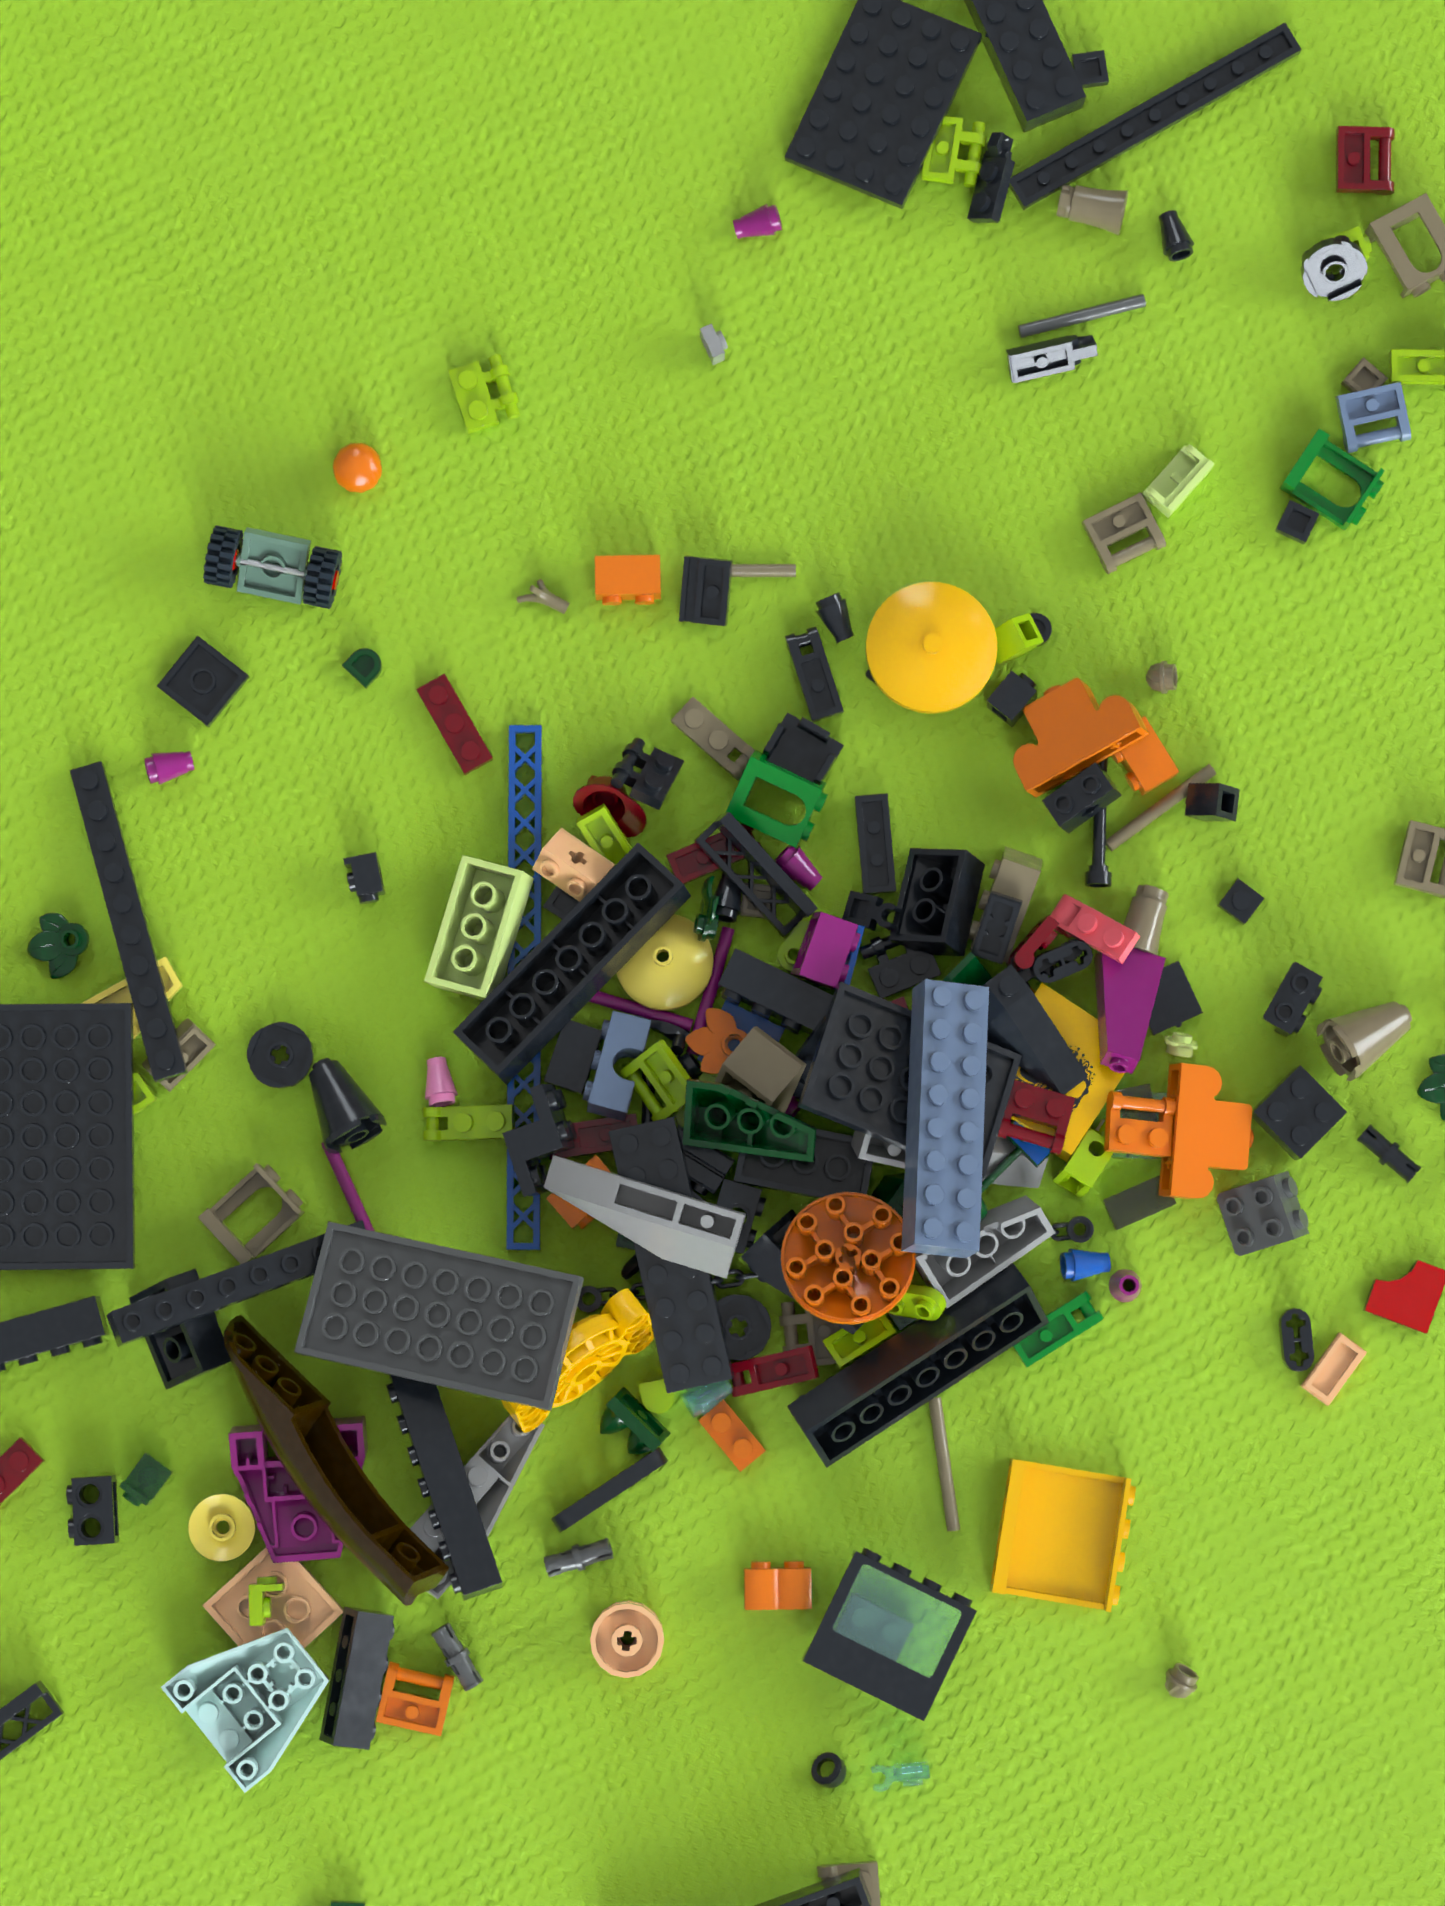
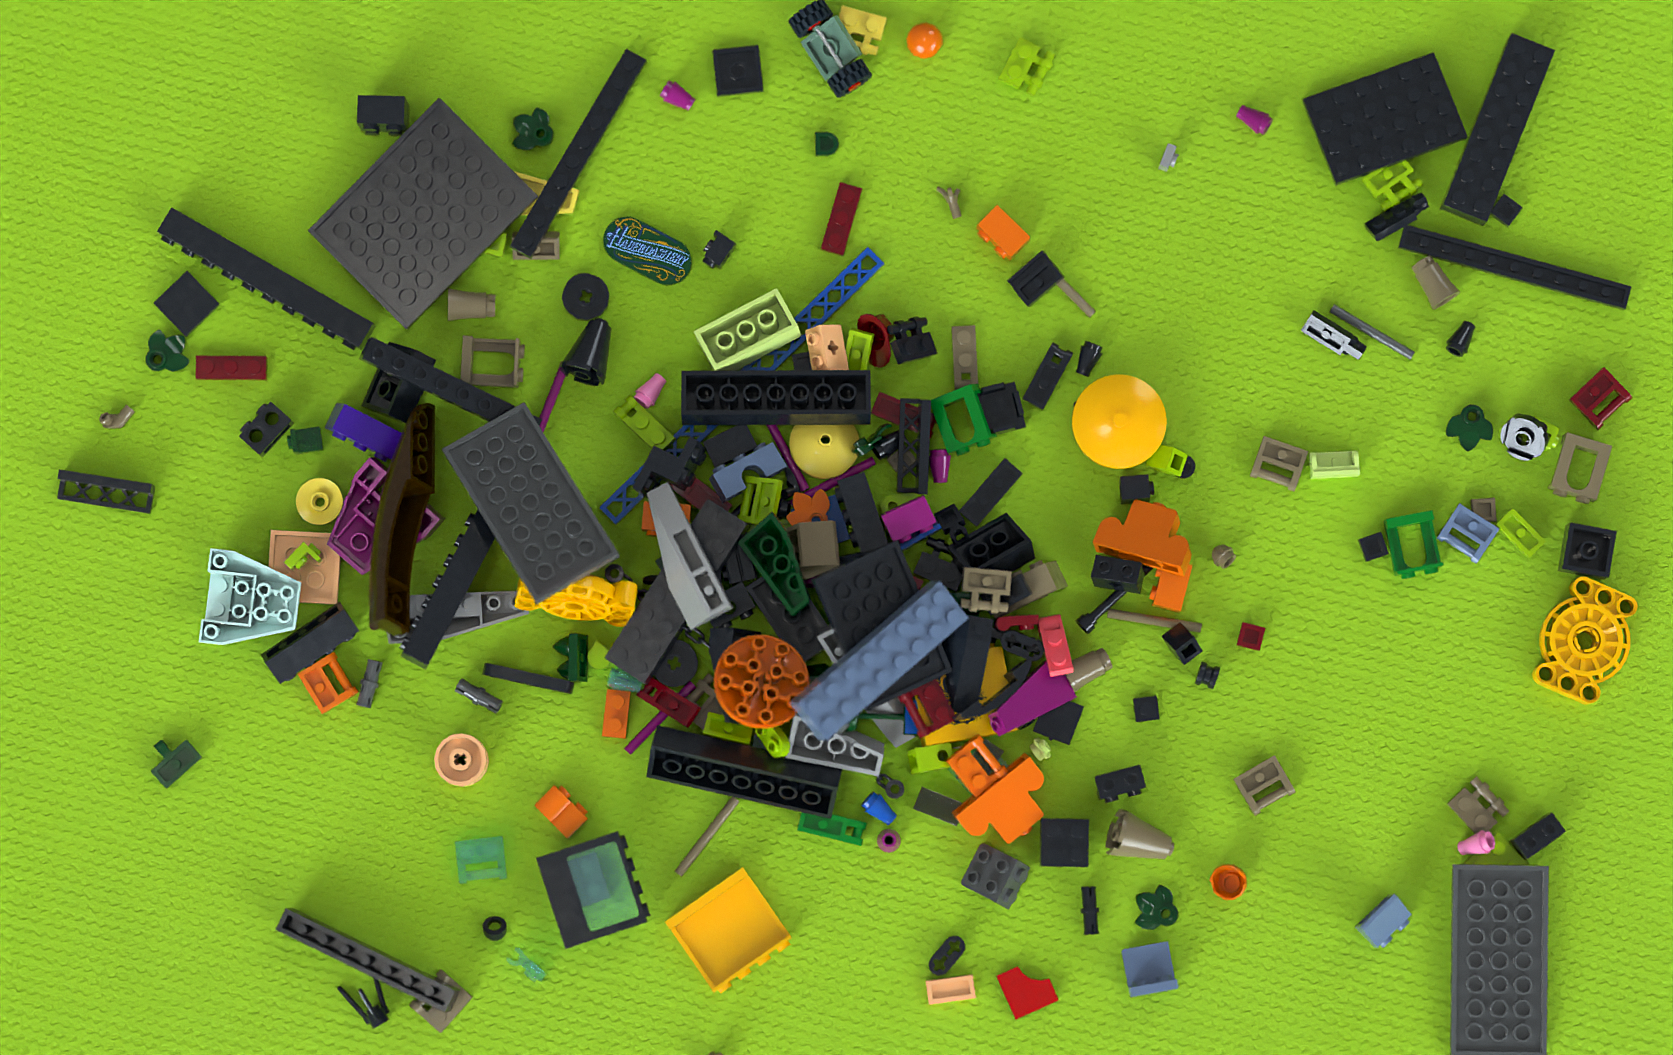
camera: 50 degrees right, 0 degrees up
(173, 1179) = (470, 304): none -> dark tan plant
(195, 1413) = (363, 431): none -> dark purple wedge
(283, 511) = (865, 25): none -> light yellow plate
(295, 948) = (647, 251): none -> dark green tile
(737, 1709) = (478, 852): none -> clear light blue plate
(778, 1403) = (657, 720): none -> magenta bar
(966, 935) = (986, 582): none -> dark tan plate
(1089, 999) = (1015, 678): none -> black slope
(1267, 808) = (1207, 675): none -> black wheel
(1269, 728) = (1250, 636): none -> dark red plate
(1273, 317) = (1467, 430): none -> dark green plate

